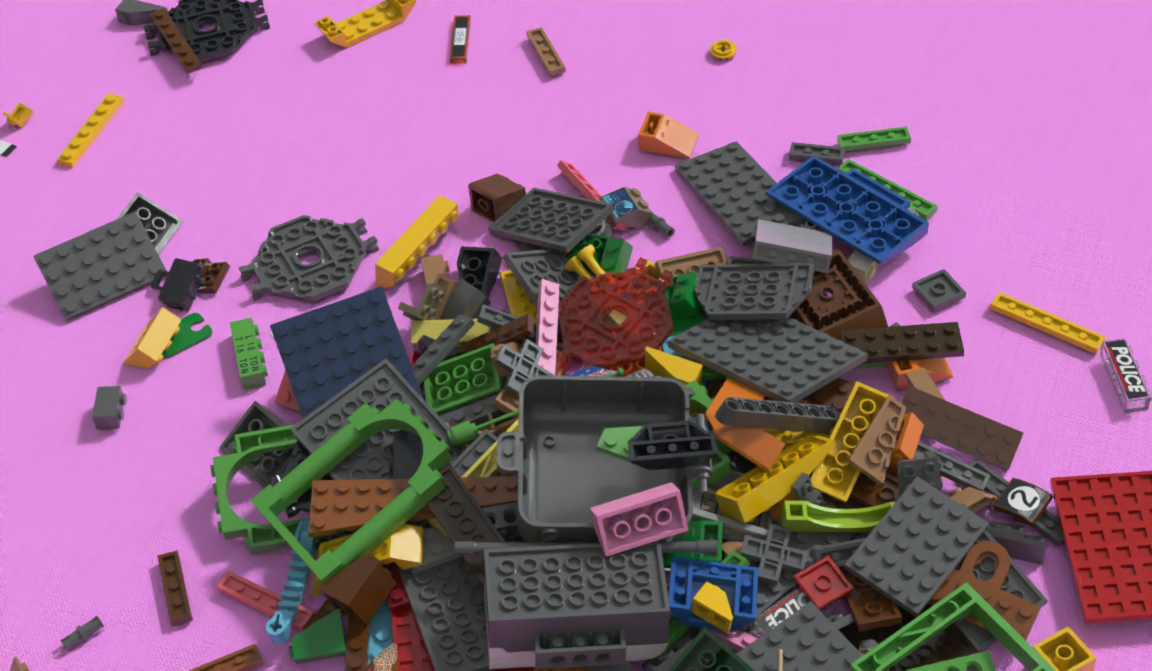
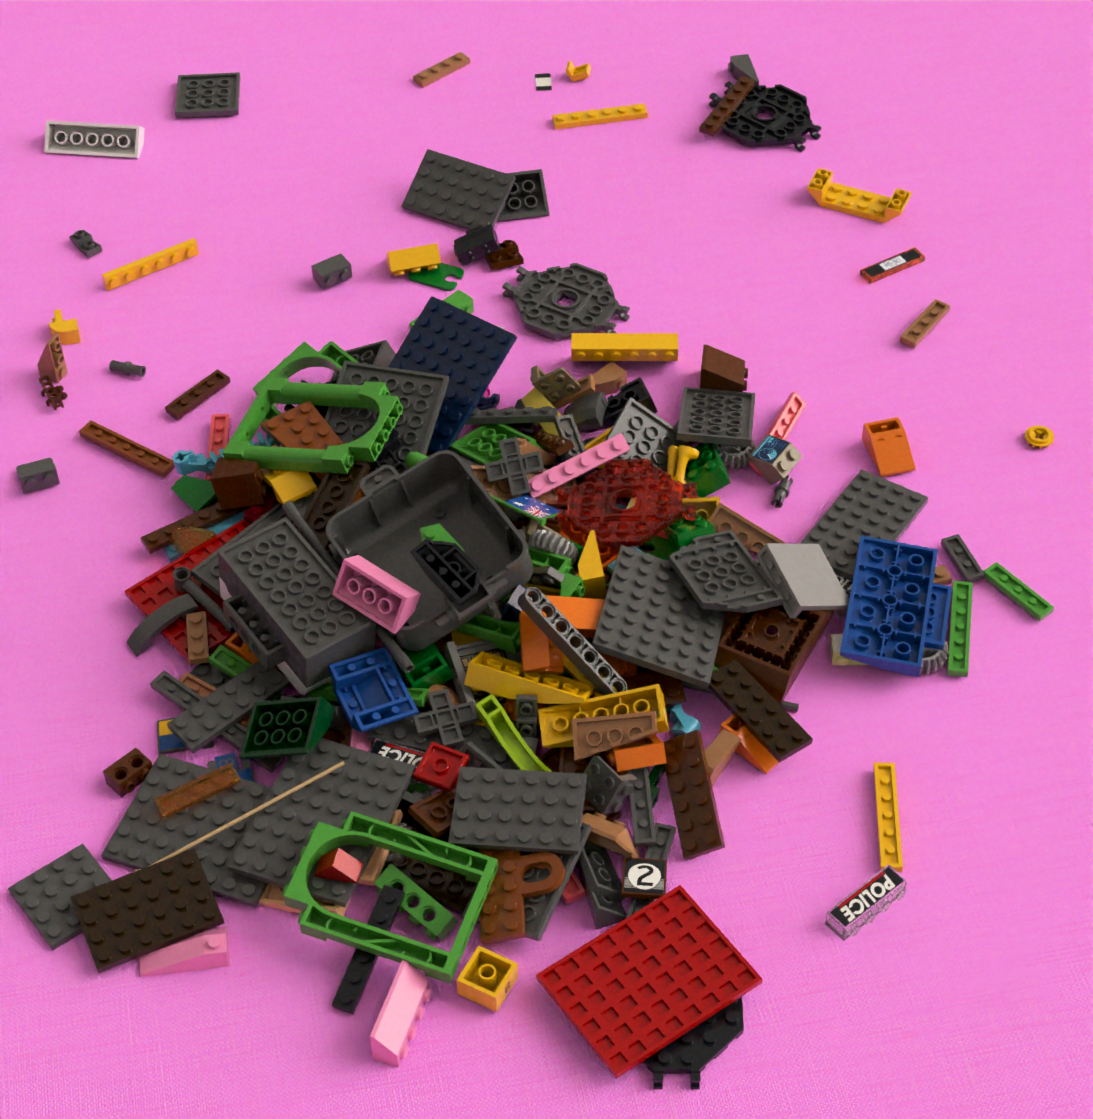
camera: 55 degrees right, 0 degrees up
(713, 607) = (356, 697): yellow slope -> none
(938, 290) = (863, 718): dark grey plate -> none

